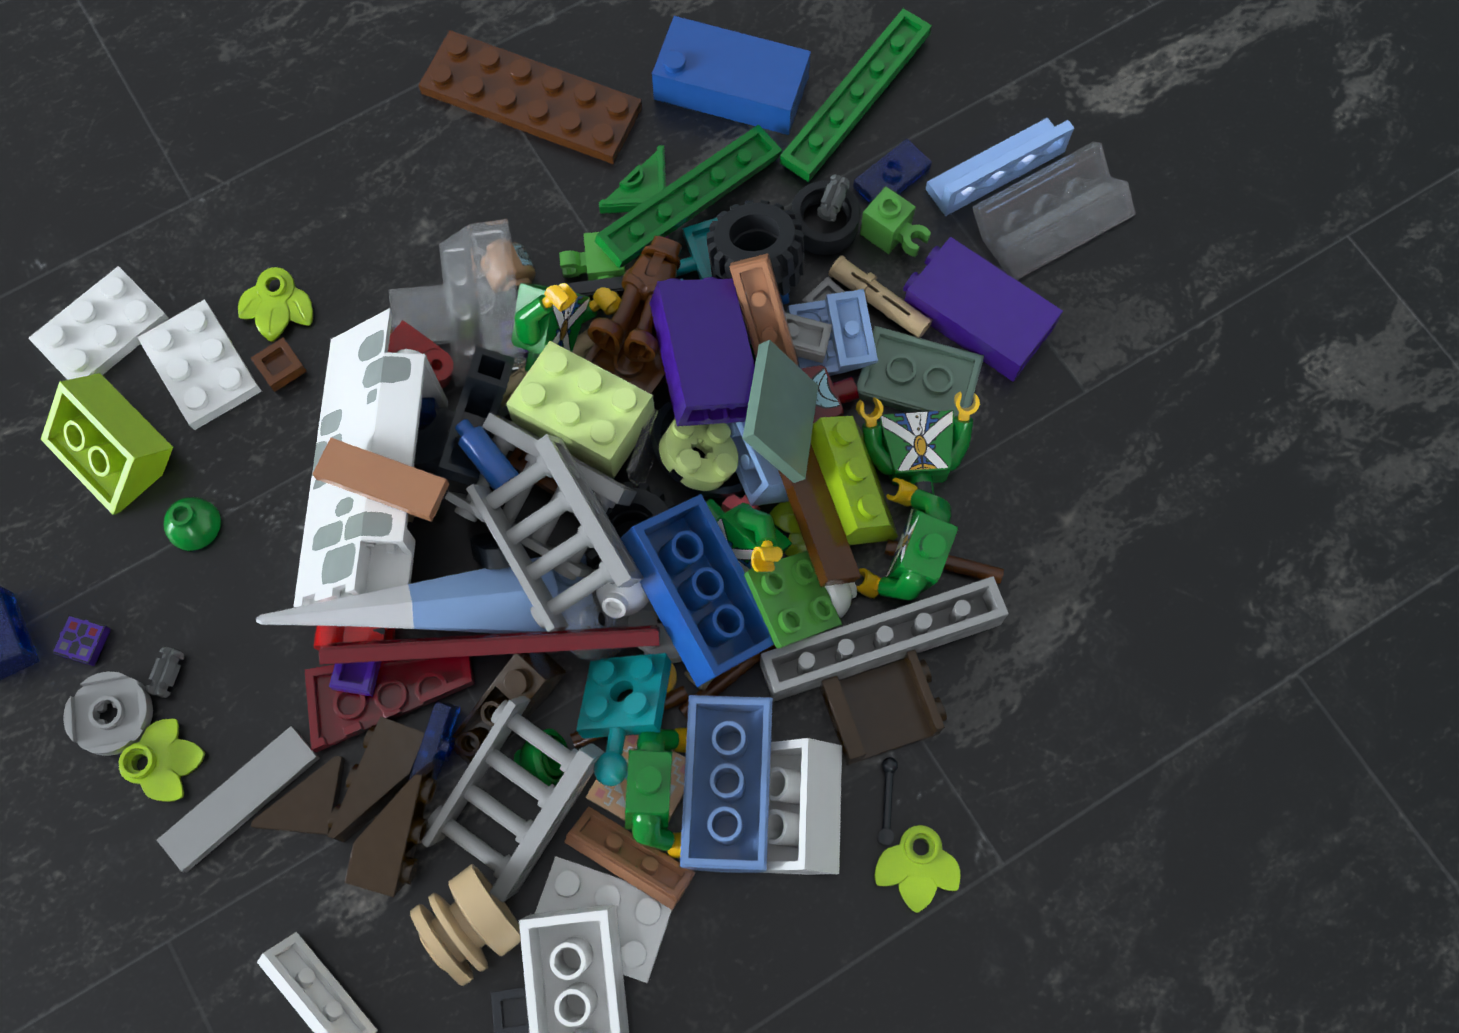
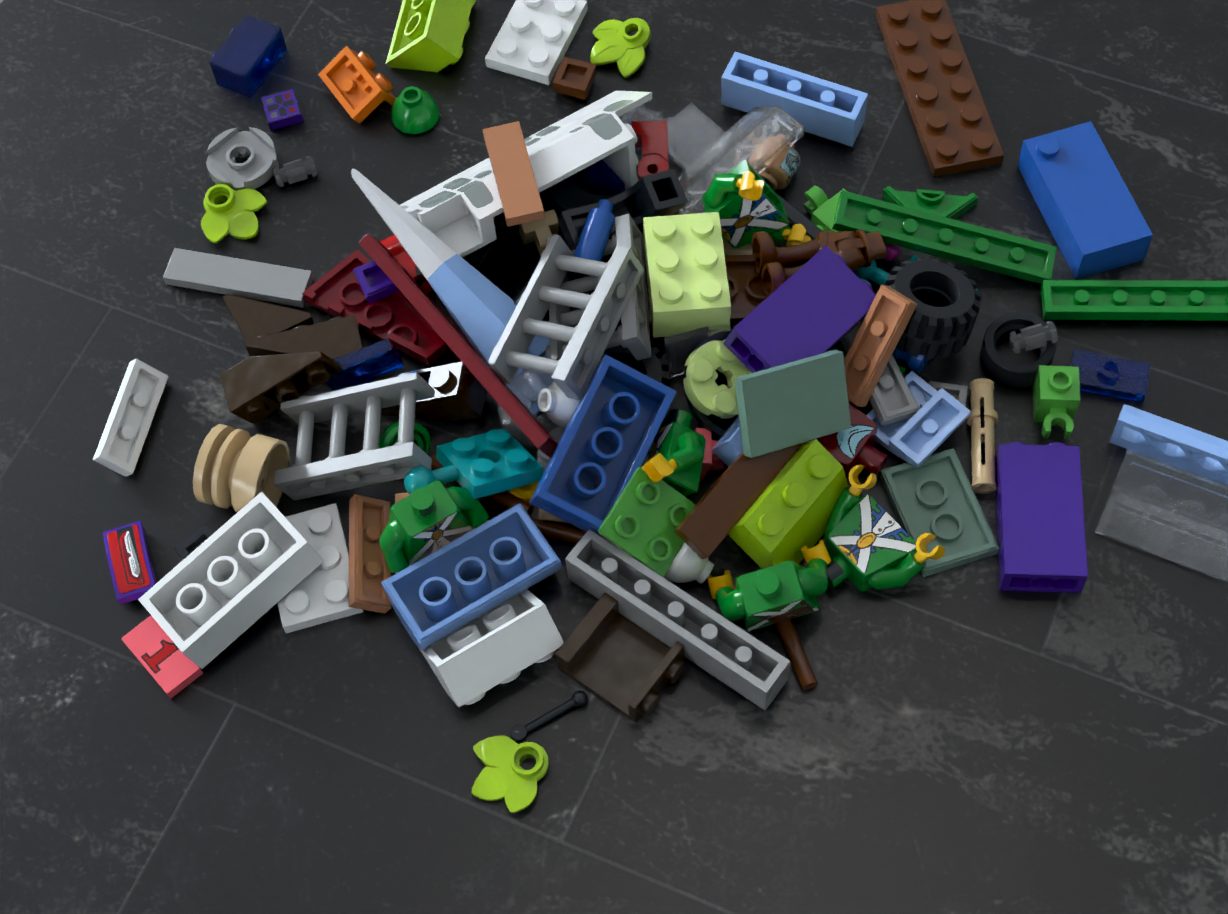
camera: 60 degrees right, 10 degrees down
(116, 554) = (356, 83): none -> orange bracket
(476, 197) = (815, 103): none -> light blue brick

